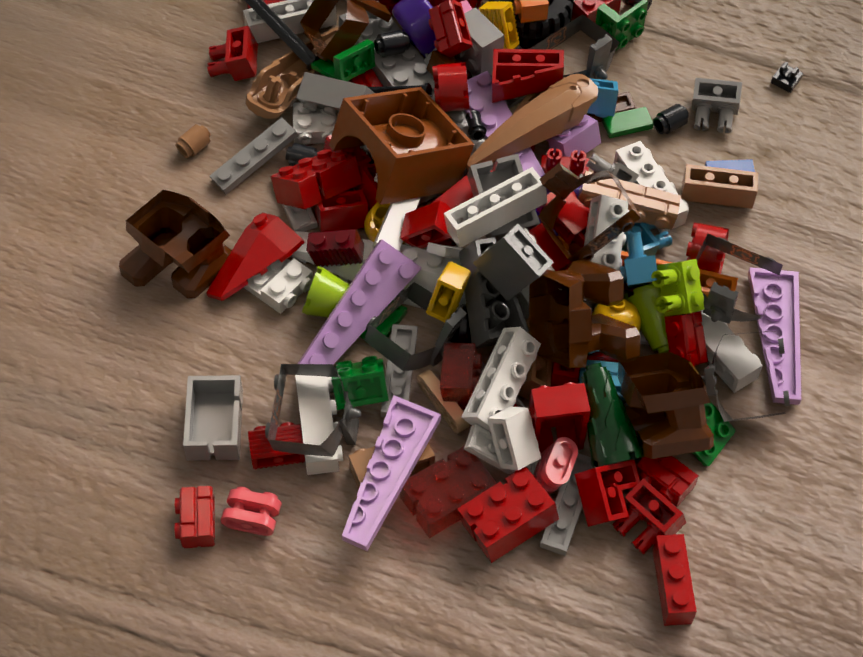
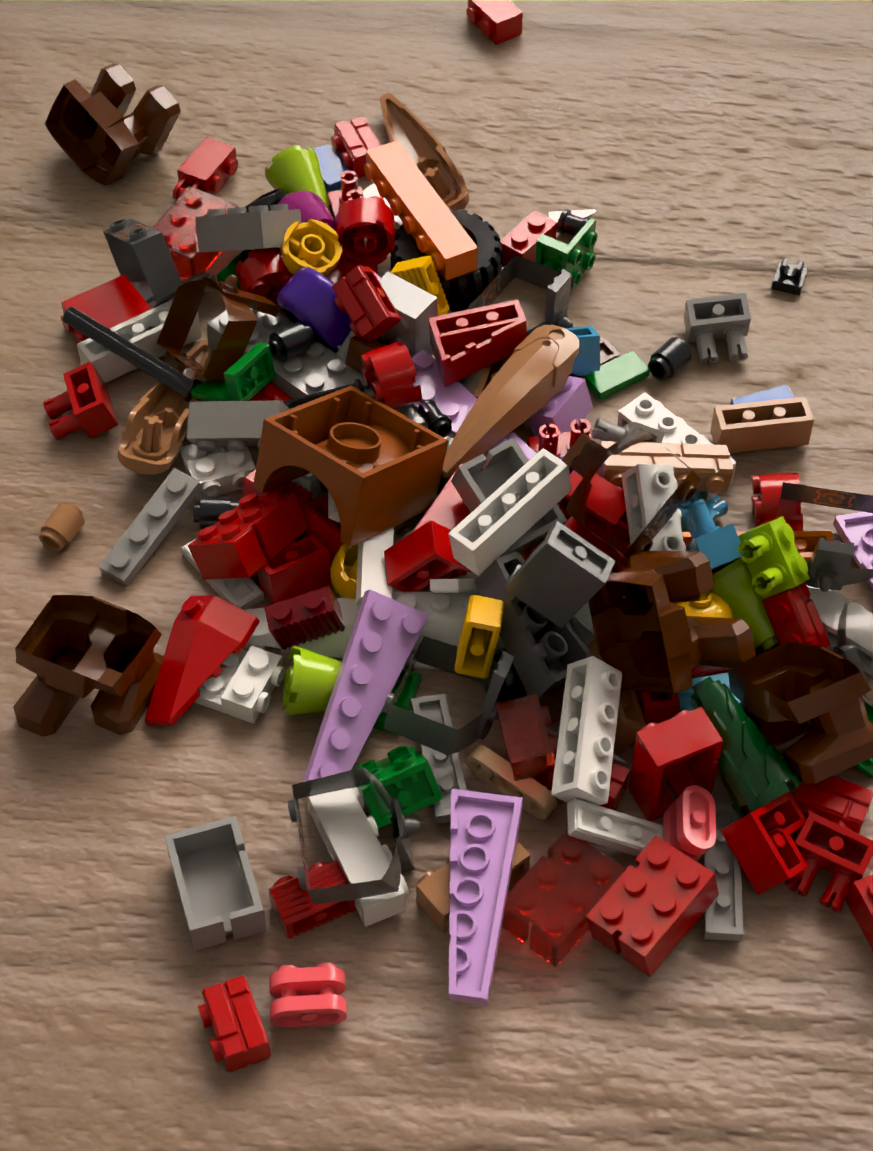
camera: 15 degrees left, 5 degrees down
(514, 438) = (631, 803): white brick -> none

